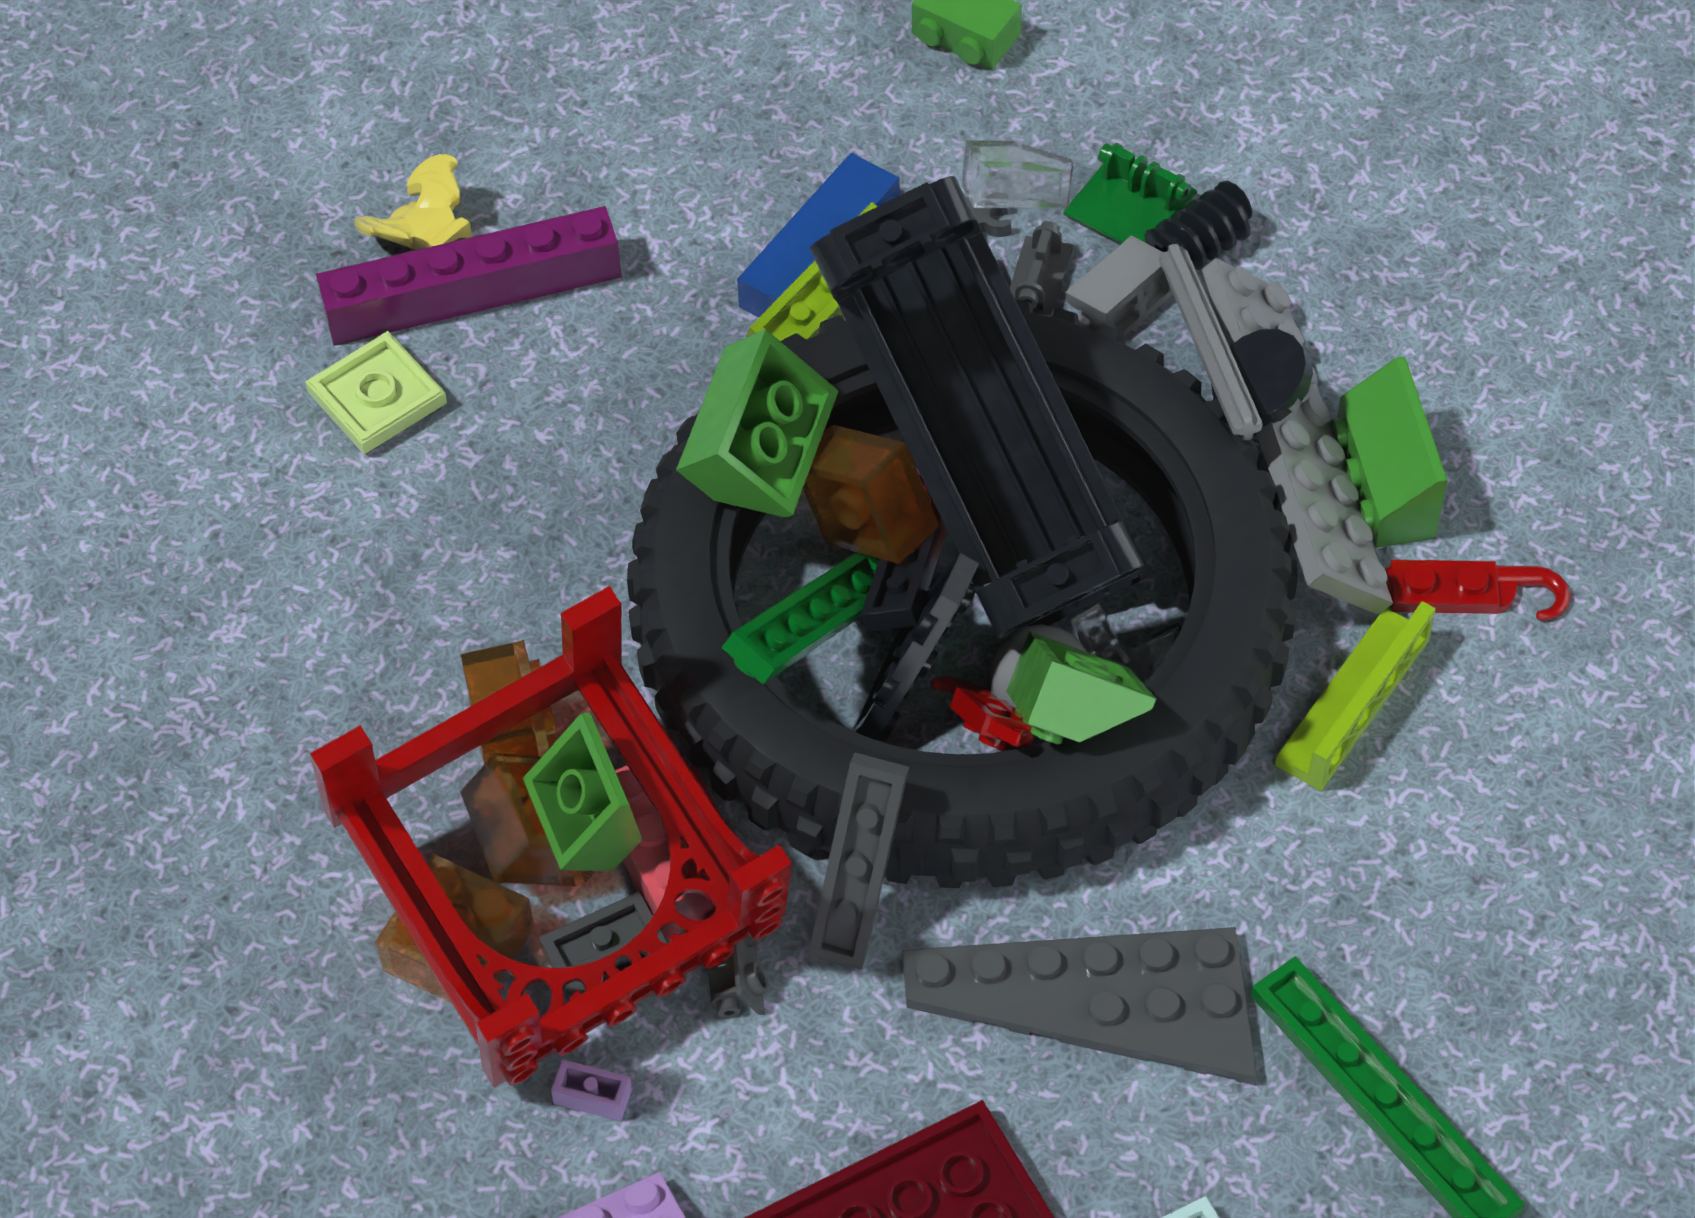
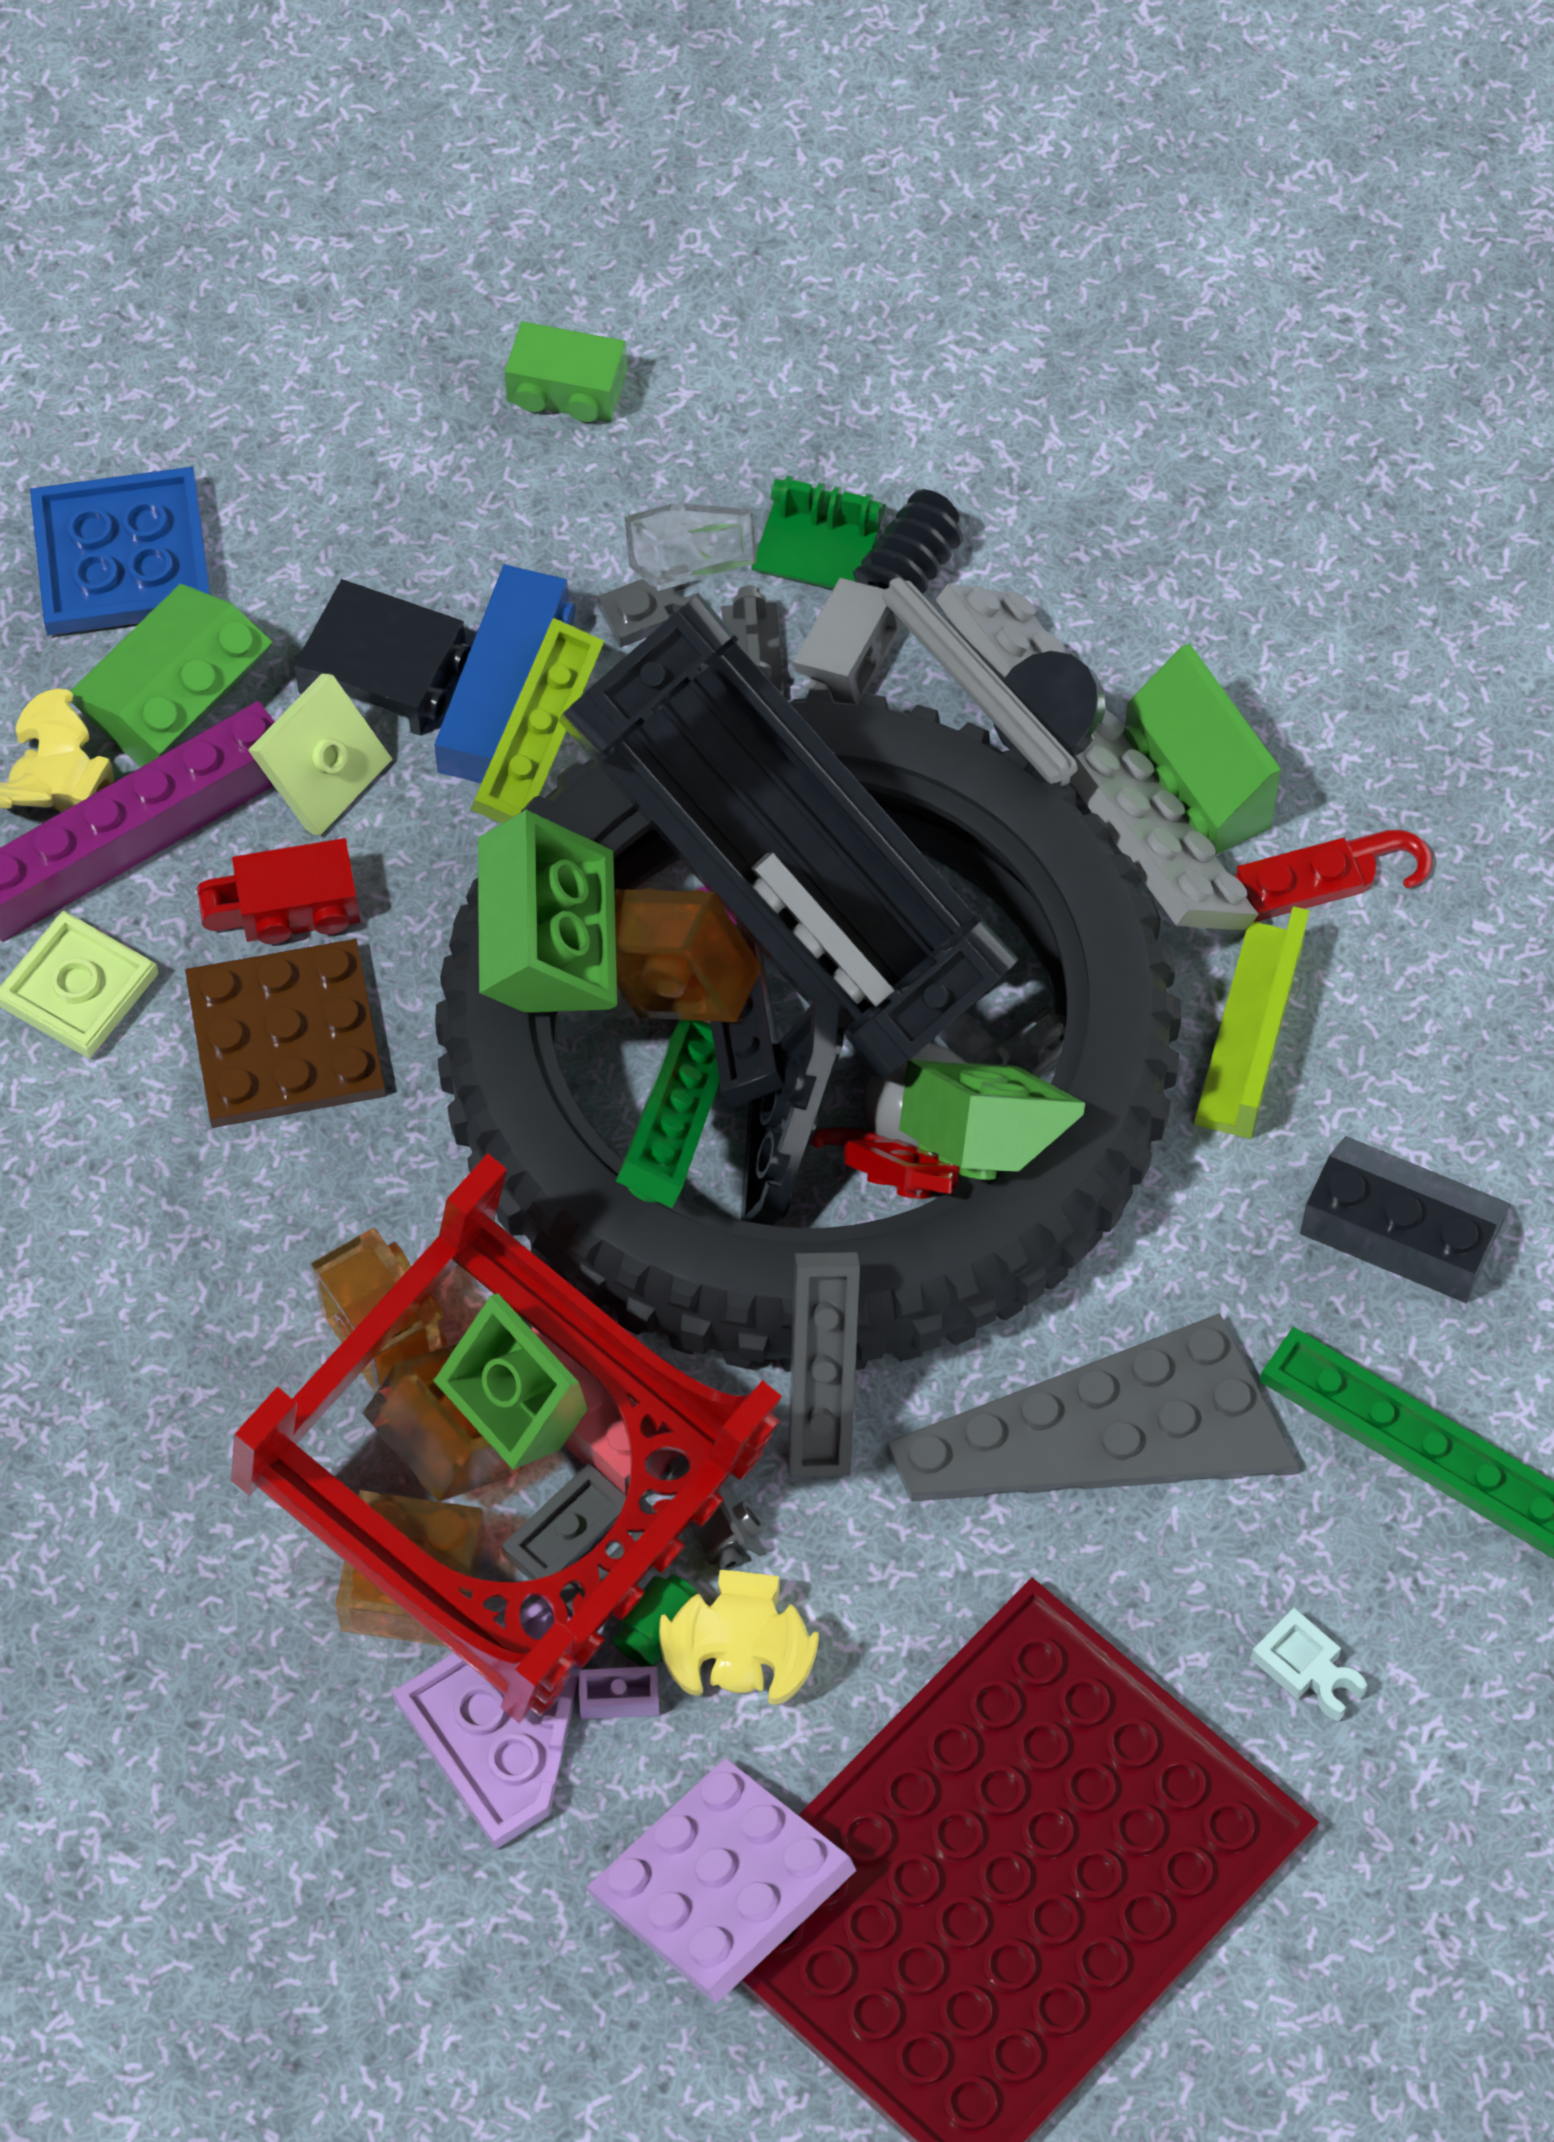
camera: 20 degrees left, 5 degrees up
(461, 1114) = (492, 1762): none -> lavender plate
(529, 477) = (284, 1033): none -> reddish brown plate
(548, 169) = (170, 672): none -> bright green slope
(549, 68) = (116, 547): none -> blue plate
(572, 365) = (283, 893): none -> red brick
(641, 262) = (320, 754): none -> yellowish green plate
(647, 1039) = (639, 1630): none -> green brick
(712, 1070) = (741, 1635): none -> light yellow animal
(725, 198) = (385, 652): none -> black panel
(980, 493) = (818, 931): none -> light grey plate
(1430, 893) = (1403, 1218): none -> black slope

